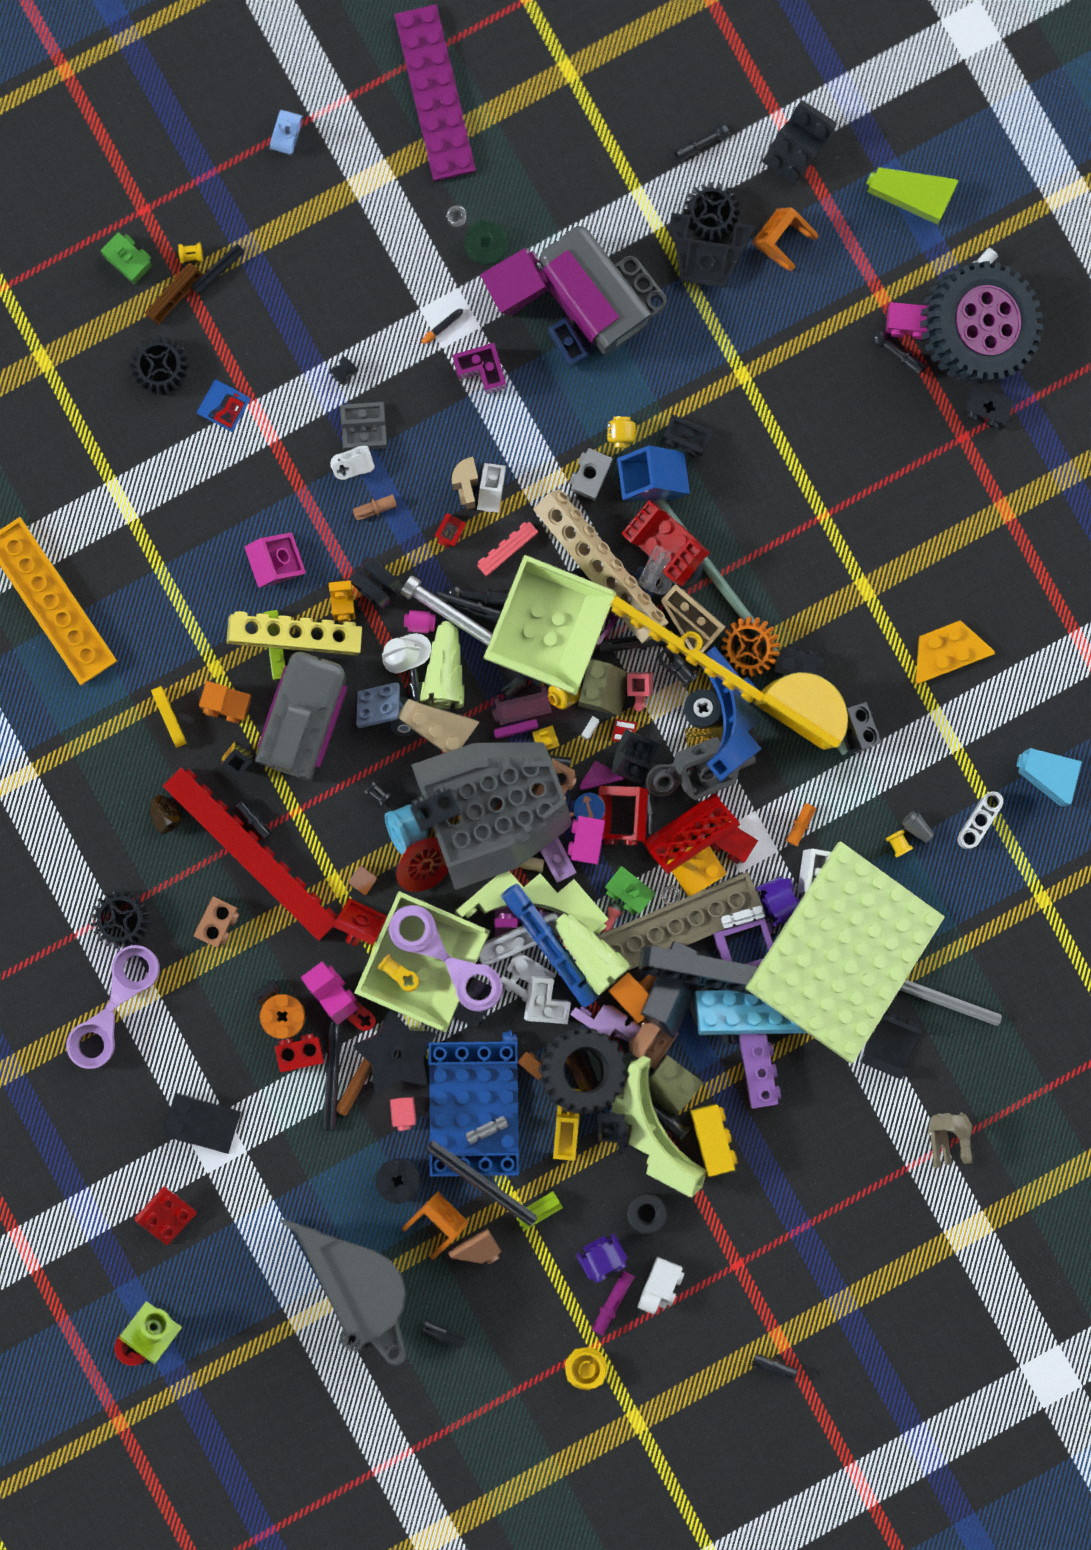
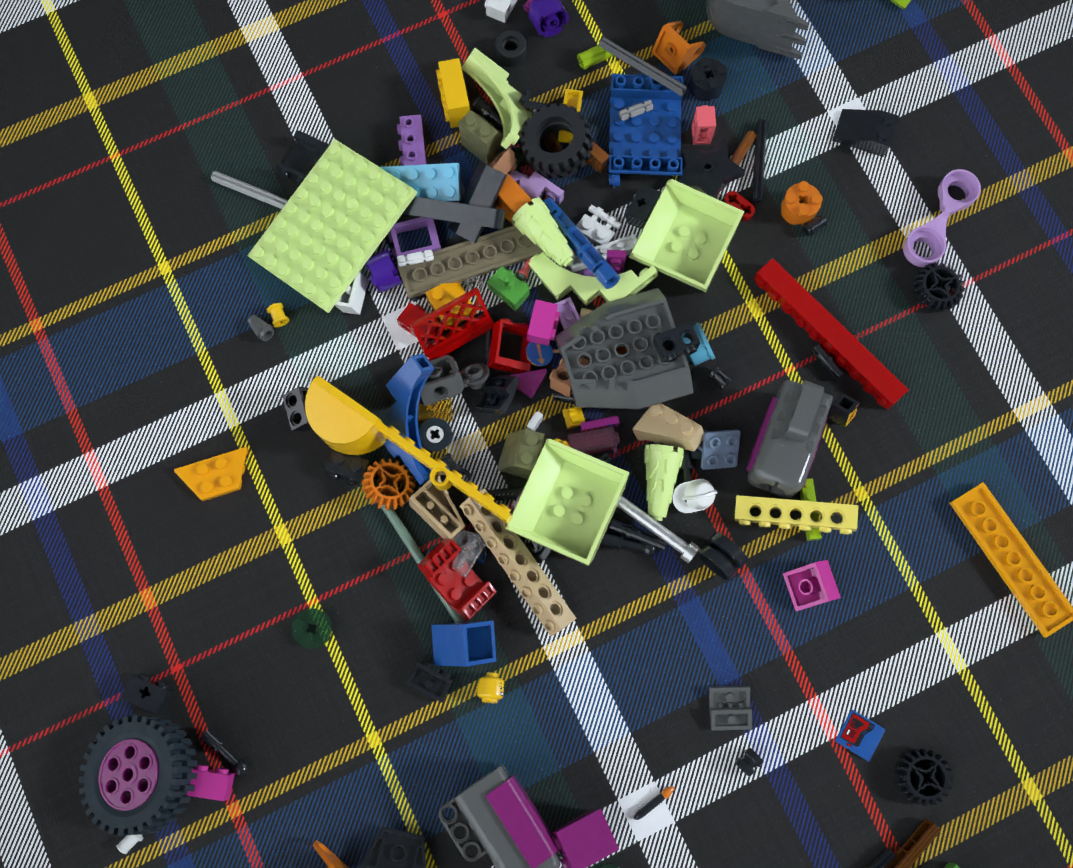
camera: 170 degrees left, 10 degrees down
(164, 814) = (905, 369): dark brown rock -> none
(165, 1215) = (893, 63): red plate -> none
(168, 716) = (903, 451): yellow beam -> none
(211, 919) = (857, 280): nougat brick -> none
(224, 701) = (858, 462): orange brick -> none
(300, 1058) = (785, 172): red brick -> none
(328, 989) = (762, 216): dark pink brick -> none
(342, 601) = (751, 541): light orange slope -> none
(354, 462) = (740, 672): white piece -> none
(360, 922) = (736, 271): red tile -> none
(362, 880) = (732, 310): slope -> none
(374, 507) = (720, 629): nougat axle -> none
(398, 973) = (704, 226): yellow connector -> none
(419, 621) = (681, 522): dark pink brick -> none
(419, 877) = (688, 310): red piece -> none
(432, 946) = (654, 223): lavender piece -> none
(450, 531) = (652, 603): red window -> none
(463, 479) = (639, 650): tan brick -> none
(477, 1249) = (647, 28): nougat slope -> none
(481, 361) = (617, 763): magenta brick -> none
(491, 487) = (613, 642): white slope -> none
(507, 548) = (600, 585): coral piece -> none
(541, 1006) = (586, 200): white plate -> none
(568, 343) = (535, 777): dark blue brick -> none
(590, 487) = (521, 637): light grey brick -> none
(619, 728) = (505, 421): tile -> none
(640, 685) = (489, 453): coral brick -> none
(801, 824) = (359, 335): orange axle -> none
(824, 474) = (301, 625): none -> clear green plate
(938, 1129) = (255, 88): dark tan piece -> none
(989, 814) = (207, 320): white beam -> none
(1051, 774) = (135, 361): medium azure slope -> none

